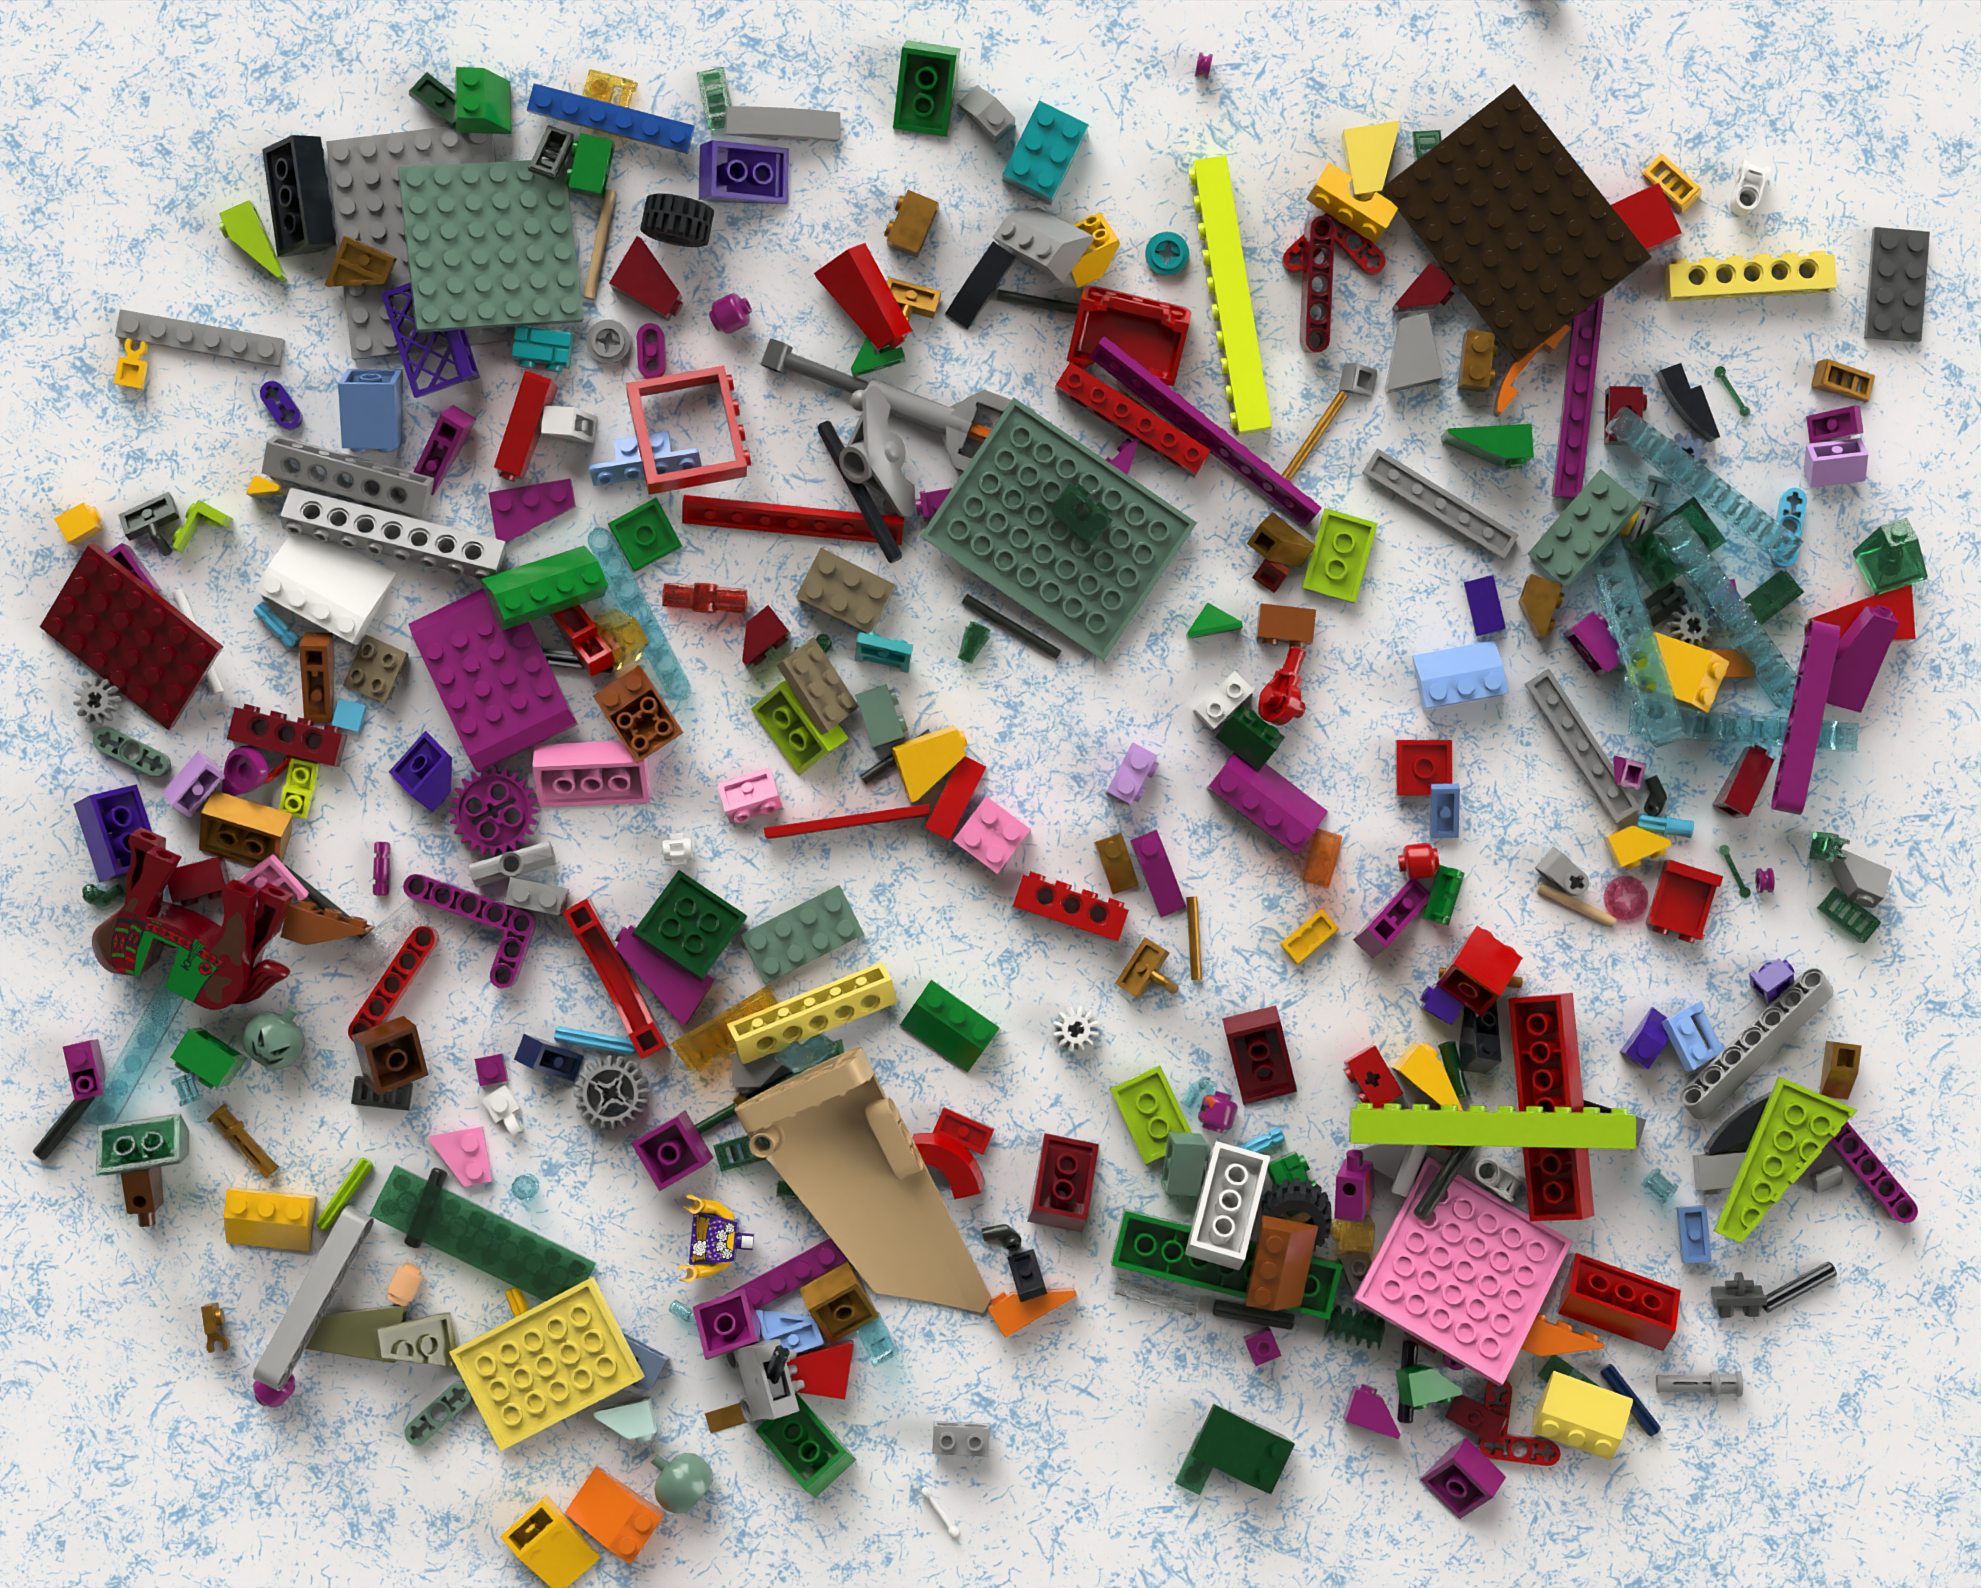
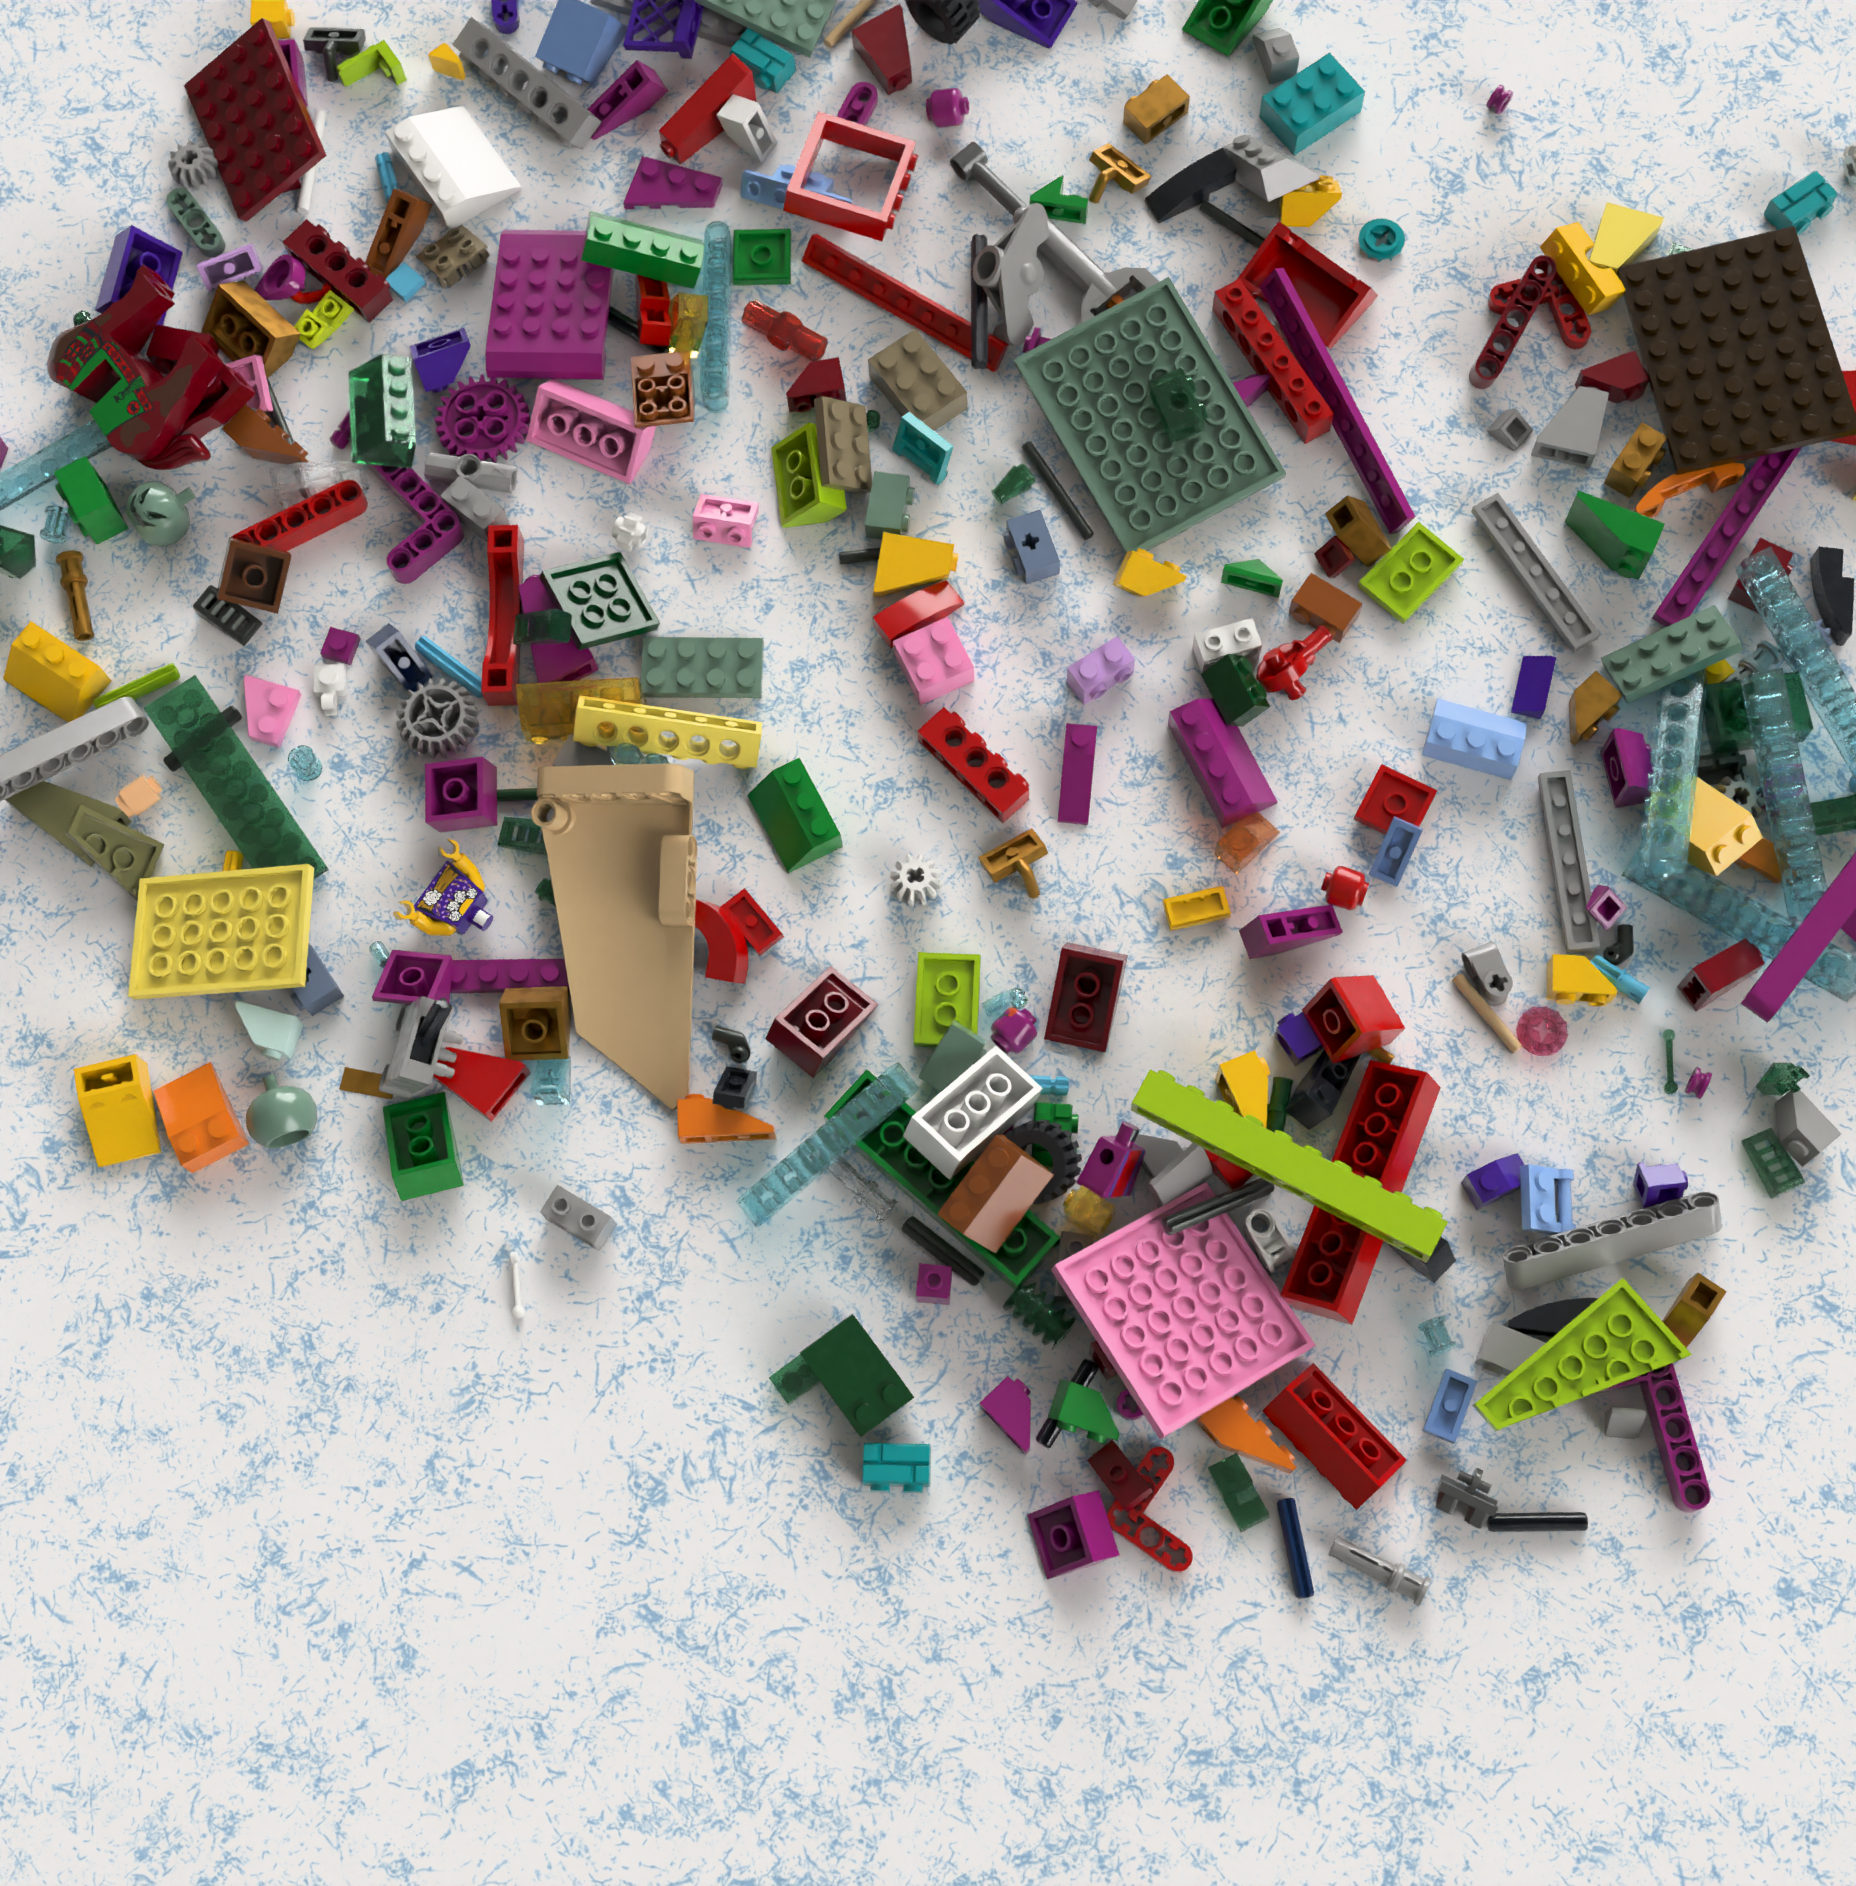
camera: 35 degrees right, 15 degrees down
(383, 524) = (534, 146): light grey brick -> none
(410, 854) = (382, 412): none -> clear green slope
(418, 1420) = (76, 947): sand green beam -> none
(601, 331) = (821, 75): light grey gear -> none
(675, 976) = (545, 627): none -> clear green slope
(794, 1331) = (480, 1031): light blue wing -> none
(847, 821) = (800, 583): red tile -> none
(865, 296) = (1077, 139): red slope -> none
(1013, 676) = (1031, 531): none -> sand blue brick
(1116, 863) = (1041, 745): pearl gold slope -> none
(1127, 673) = (1145, 576): none -> yellow slope
(1128, 1288) = (827, 1144): none -> clear light blue beam
(1194, 938) = (1080, 855): pearl gold bar -> none
(1231, 295) = (1424, 300): neon yellow brick -> none
(1306, 1497) = (896, 1466): none -> teal brick
(1315, 435) = (1444, 457): pearl gold bar -> none
(1371, 1061) = (1190, 1056): red brick -> none
(1443, 895) = (1354, 935): green hinge -> none
(1505, 43) = (1801, 203): none -> teal brick
(1581, 1415) = (1234, 1529): light yellow slope -> none
(1682, 900) = (1602, 1060): red panel -> none

